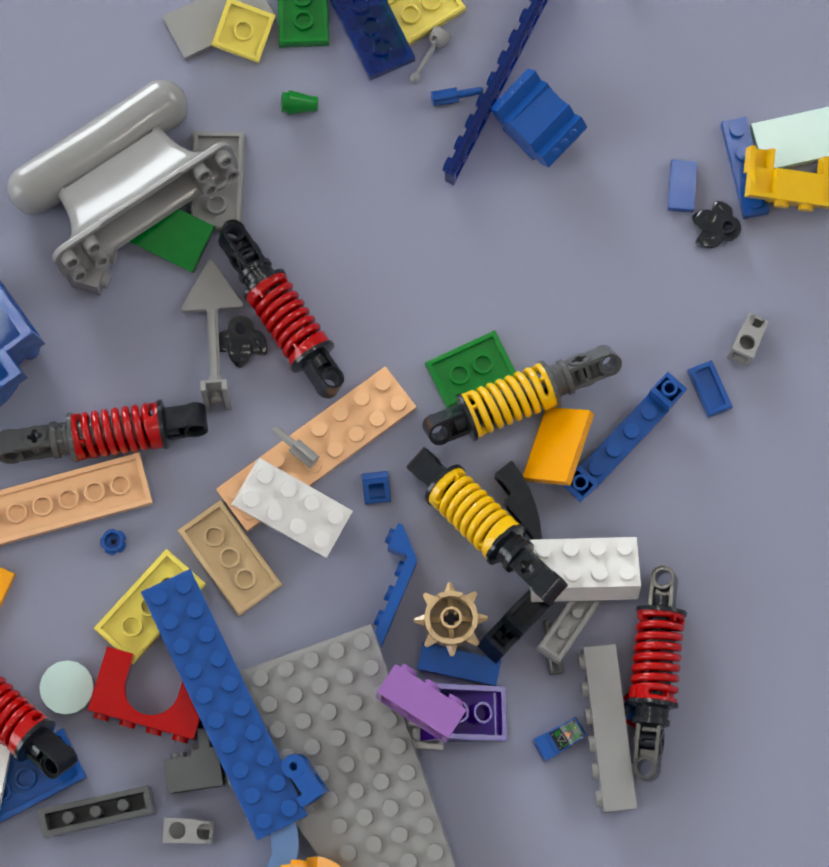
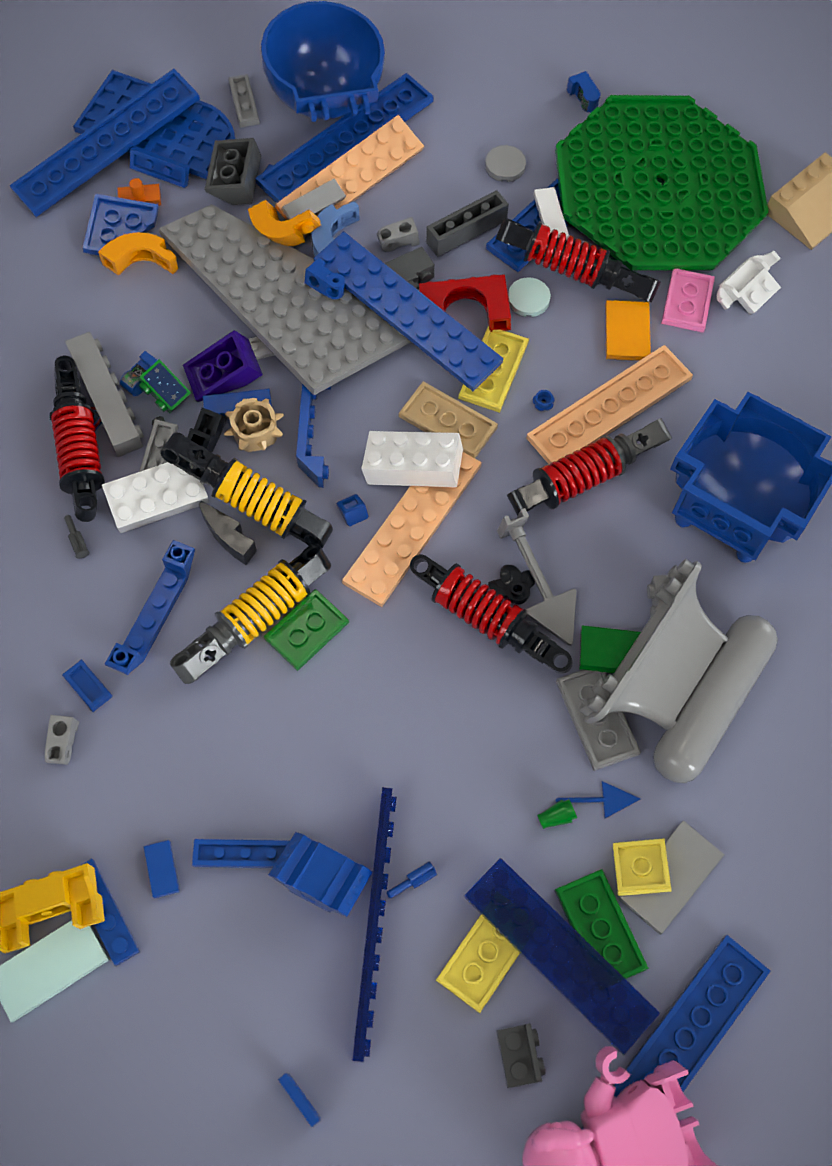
camera: 160 degrees right, 10 degrees down
(239, 101) = (613, 799): none -> blue piece
(297, 448) = (426, 507): light grey axle -> none
(421, 702) = (251, 333): medium lavender brick -> none
(438, 38) = (450, 933): light grey hinge -> none
(538, 703) = (163, 386): none -> brick
(558, 446) = (206, 580): light orange tile -> none
(604, 171) = (237, 853): none -> blue plate
(683, 556) = (76, 539): none -> dark grey axle
(713, 223) = (121, 842): black plate -> none

